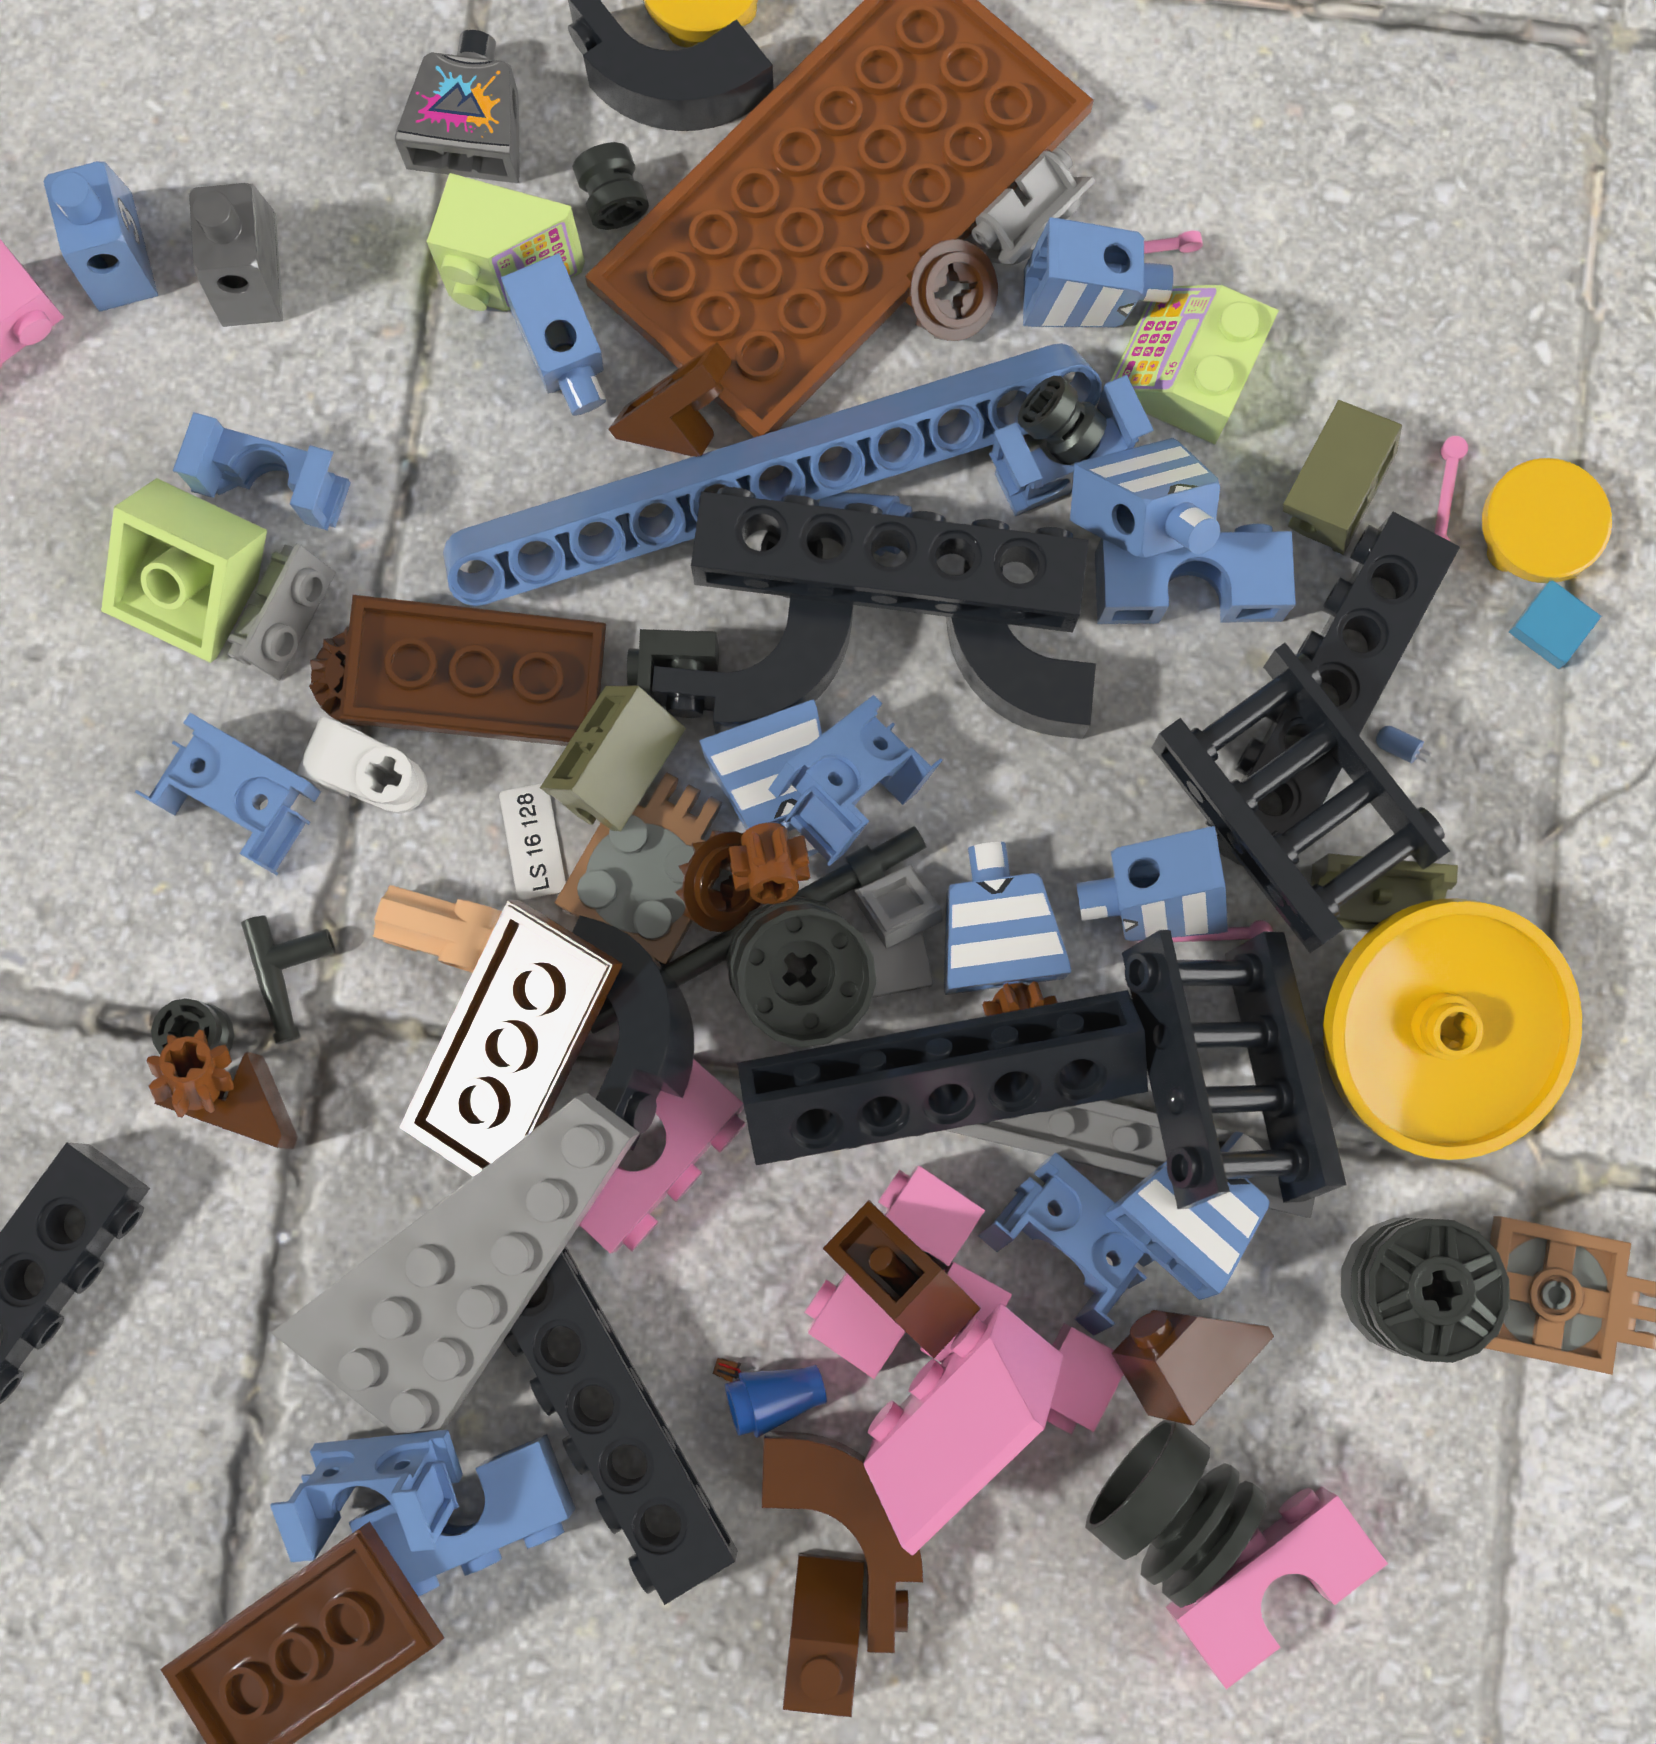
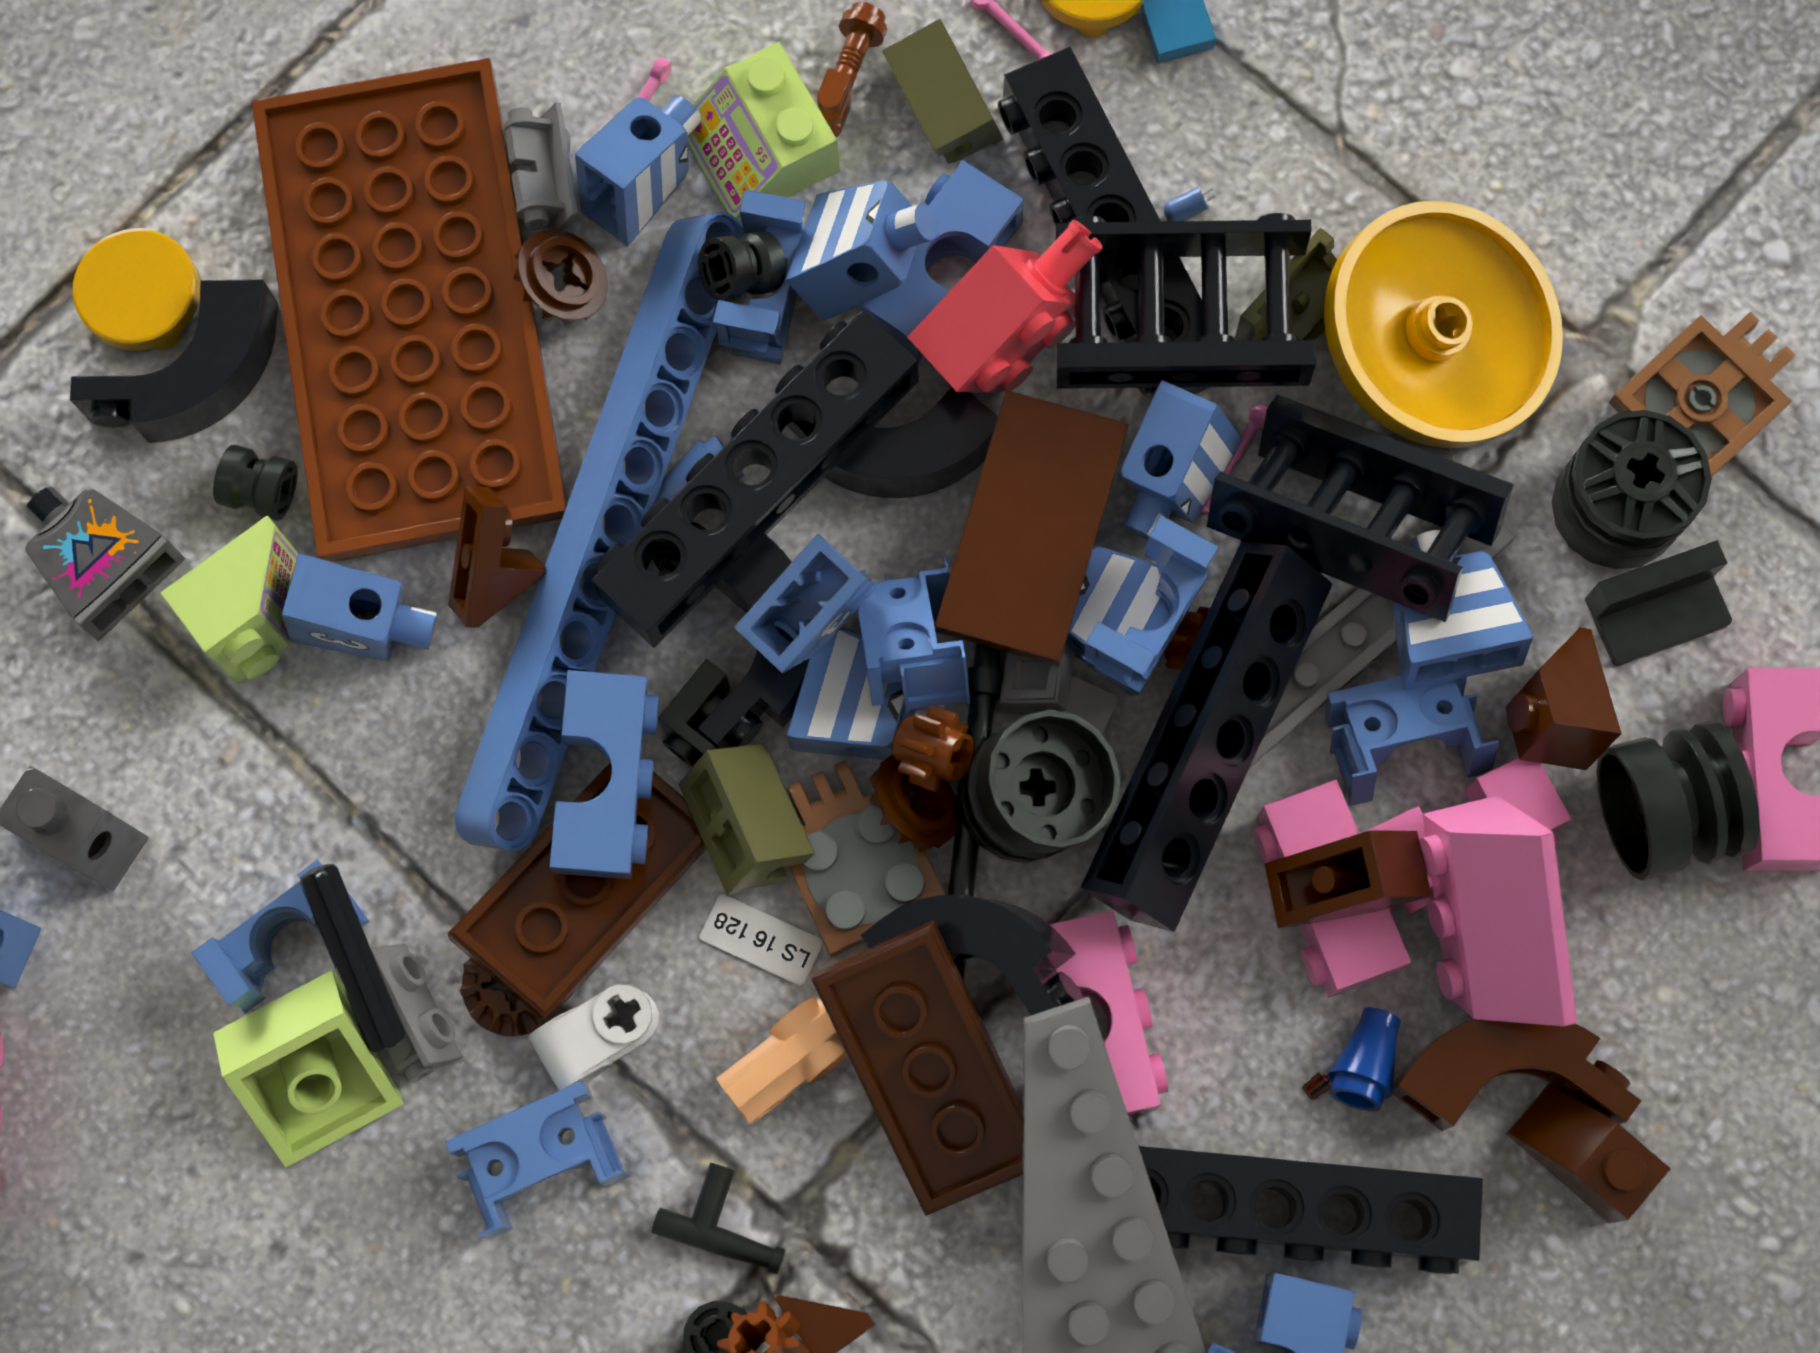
camera: 50 degrees left, 5 degrees down
(274, 534) = (352, 957): none -> black axle
(608, 599) = (612, 717): none -> medium blue arch
(818, 674) = (807, 602): none -> medium blue torso
(1014, 811) = (1031, 528): none -> reddish brown tile
(1054, 963) = (1182, 570): none -> medium blue piece
(1177, 658) = (1005, 313): none -> coral brick
(1270, 391) = (862, 28): none -> dark orange hinge
(1345, 1382) = (1660, 604): none -> pearl dark grey panel

